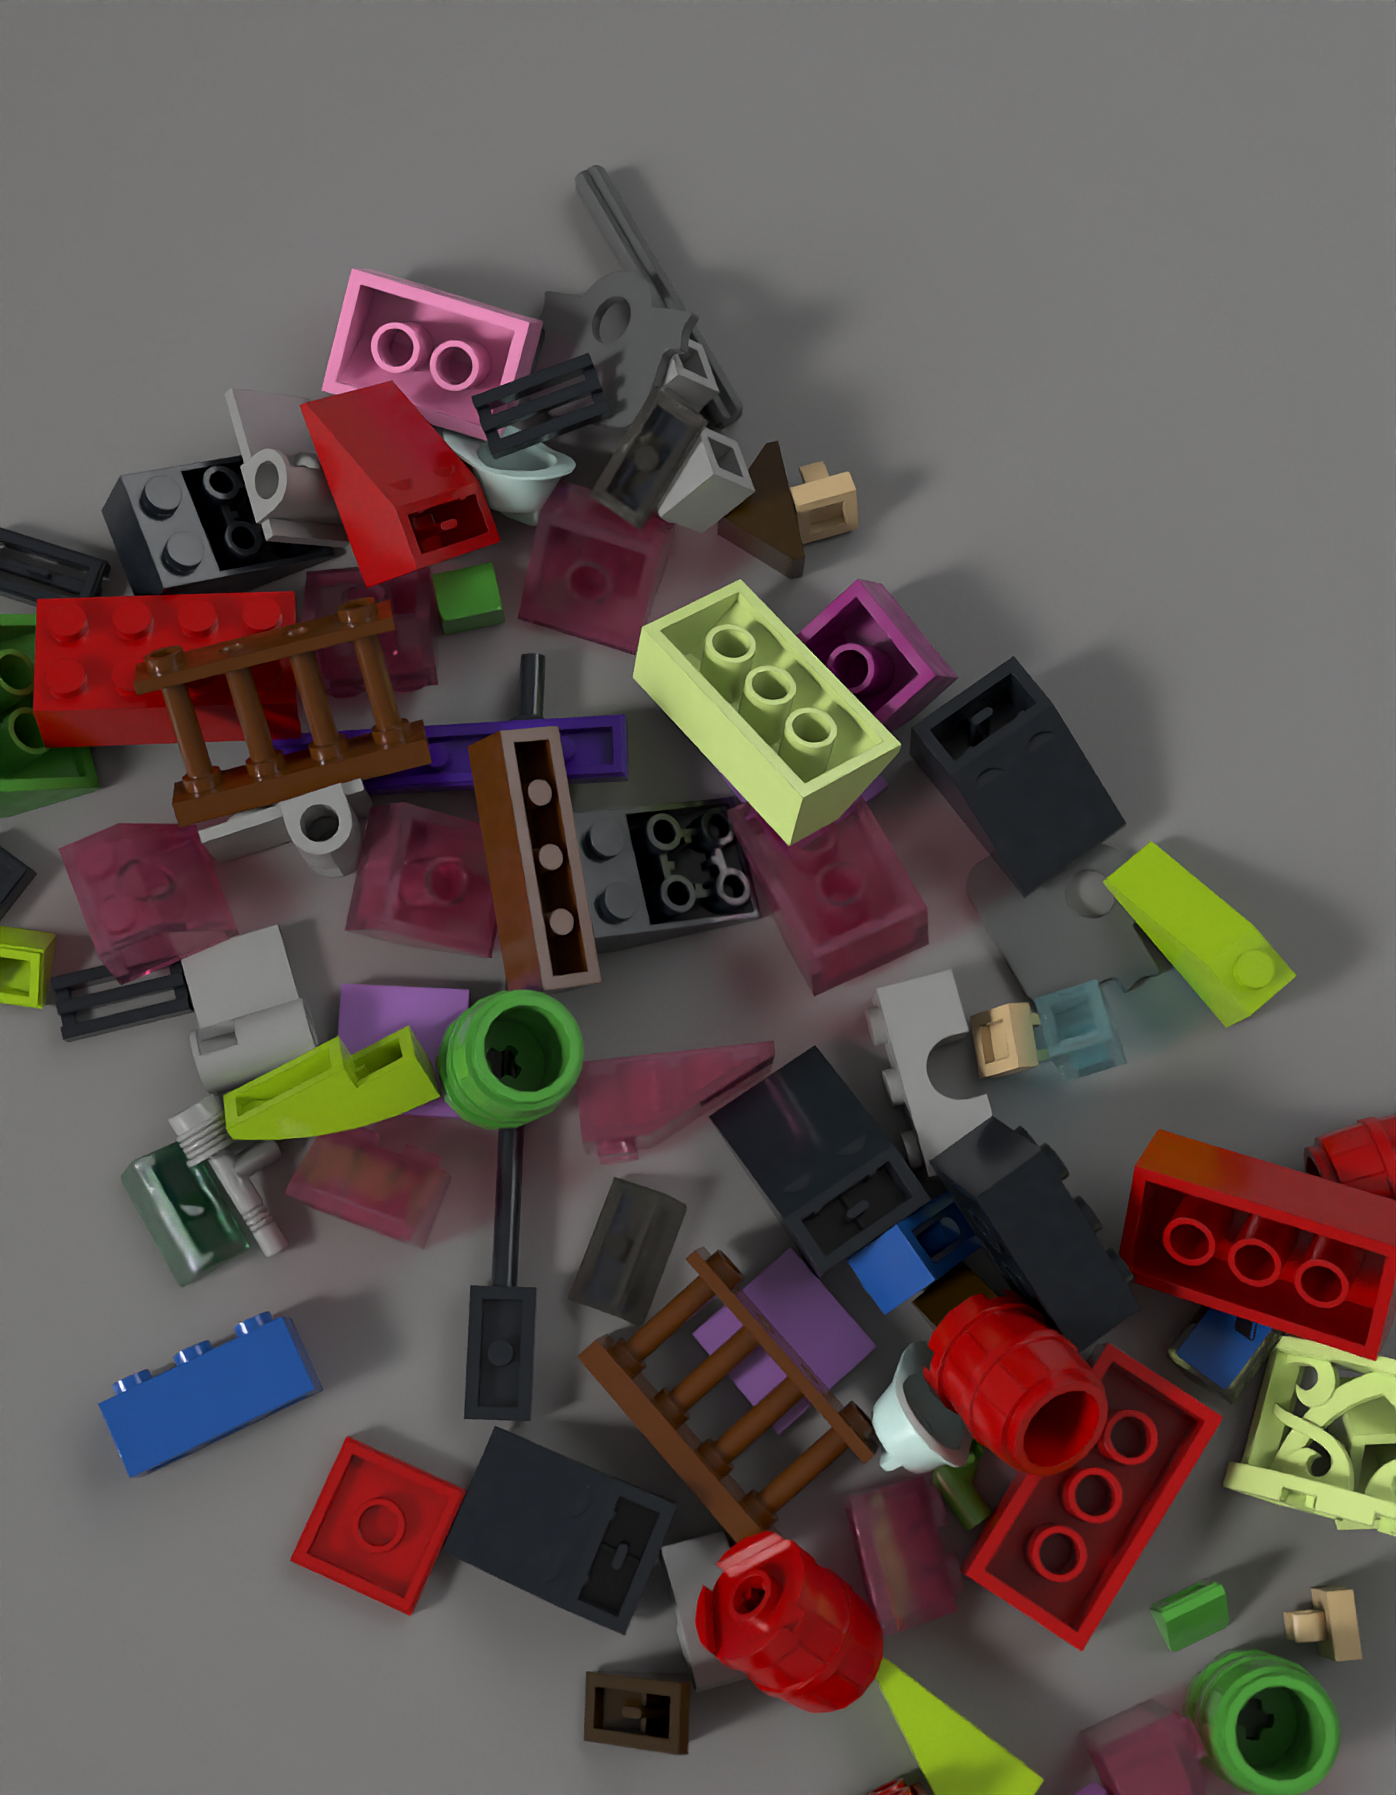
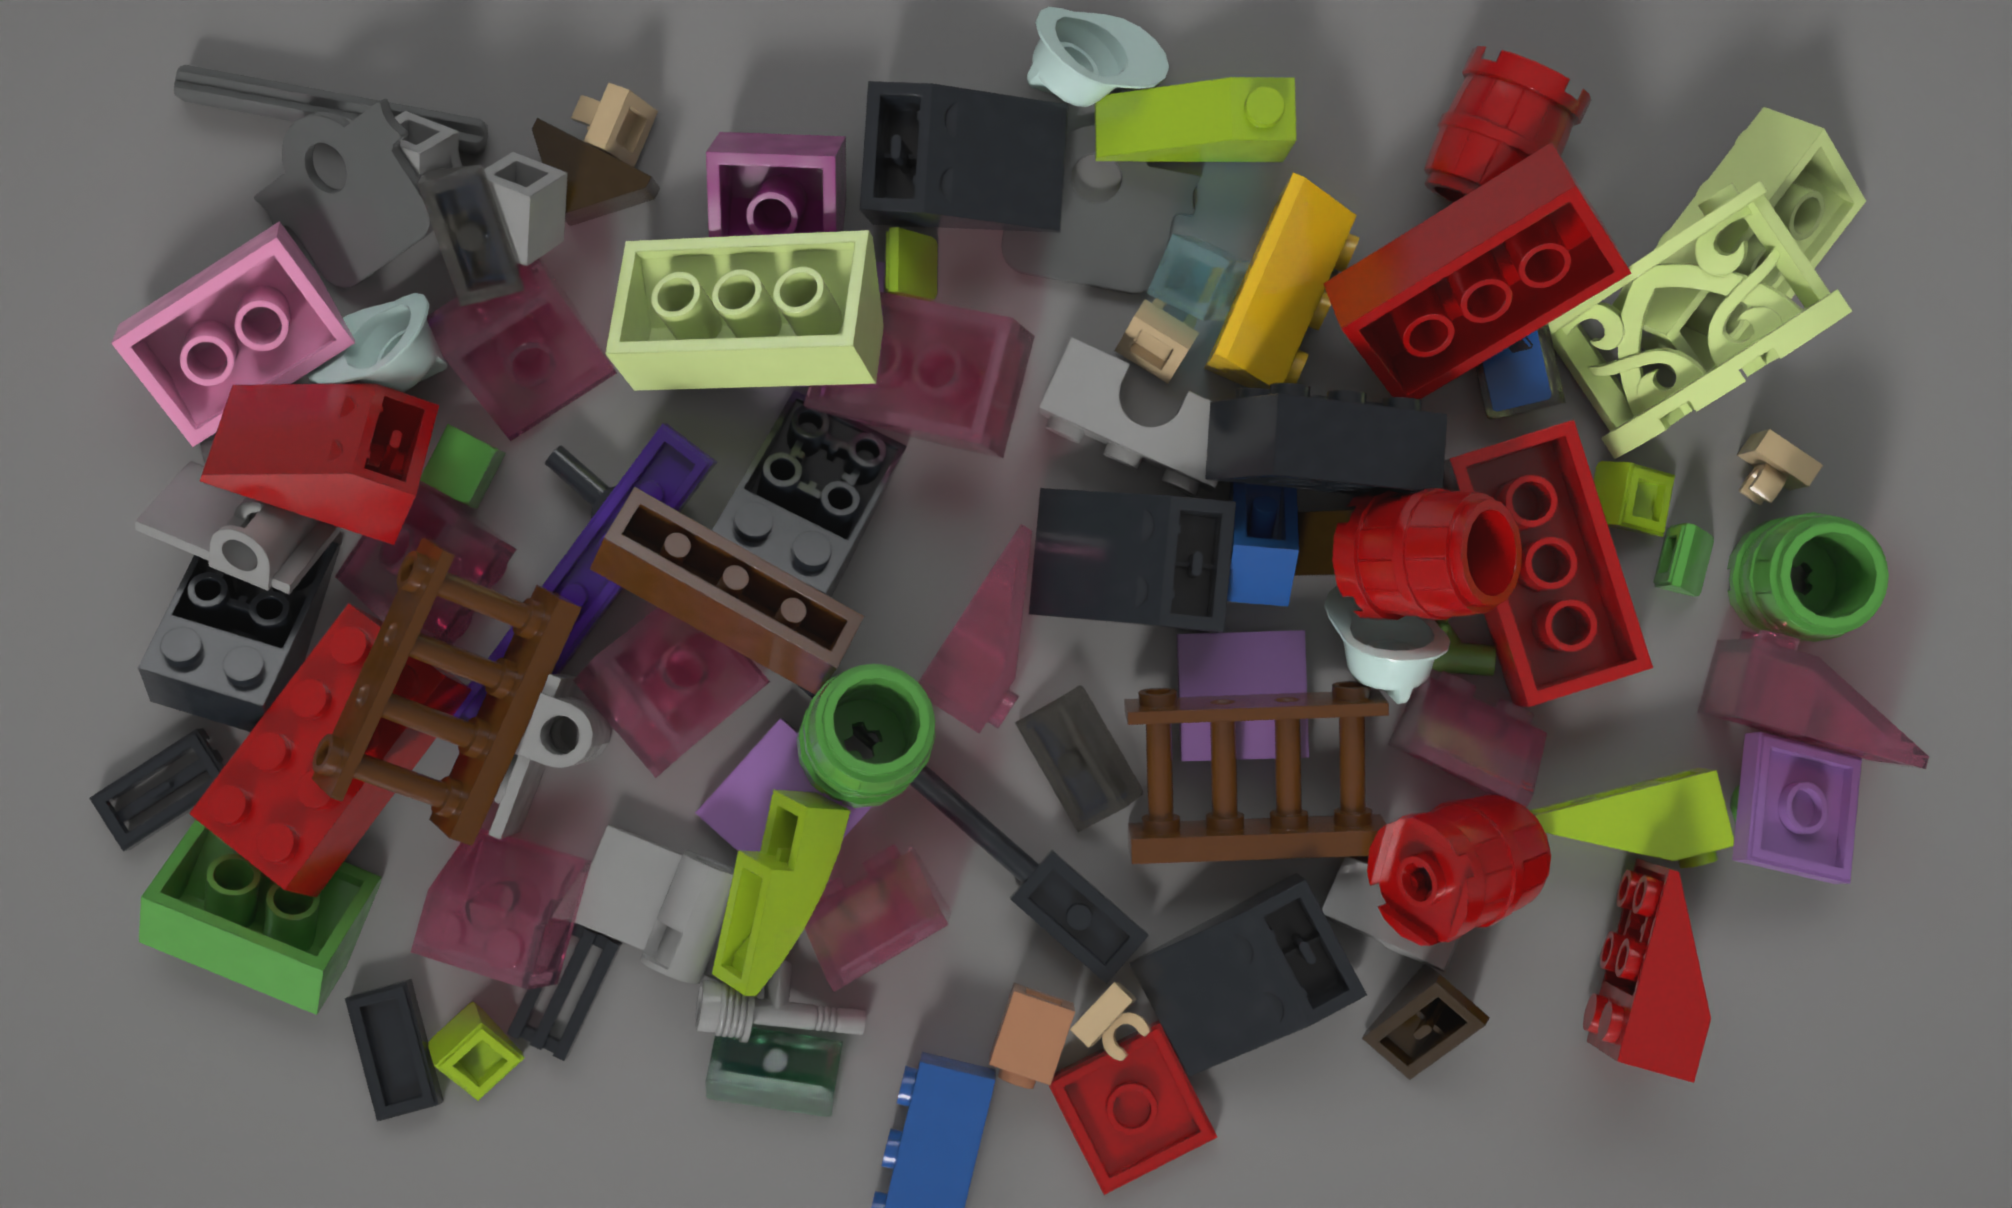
camera: 50 degrees left, 10 degrees up
(372, 1392) = (1031, 1037): none -> nougat brick
(436, 1440) = (1106, 1017): none -> tan tile
(534, 383) = (330, 275): black tile -> none
(904, 805) = (911, 264): none -> lime slope
(1129, 1098) = (1284, 288): none -> yellow slope
(1178, 810) = (1091, 55): none -> light aqua piece
(1204, 1528) = (1634, 496): none -> lime slope

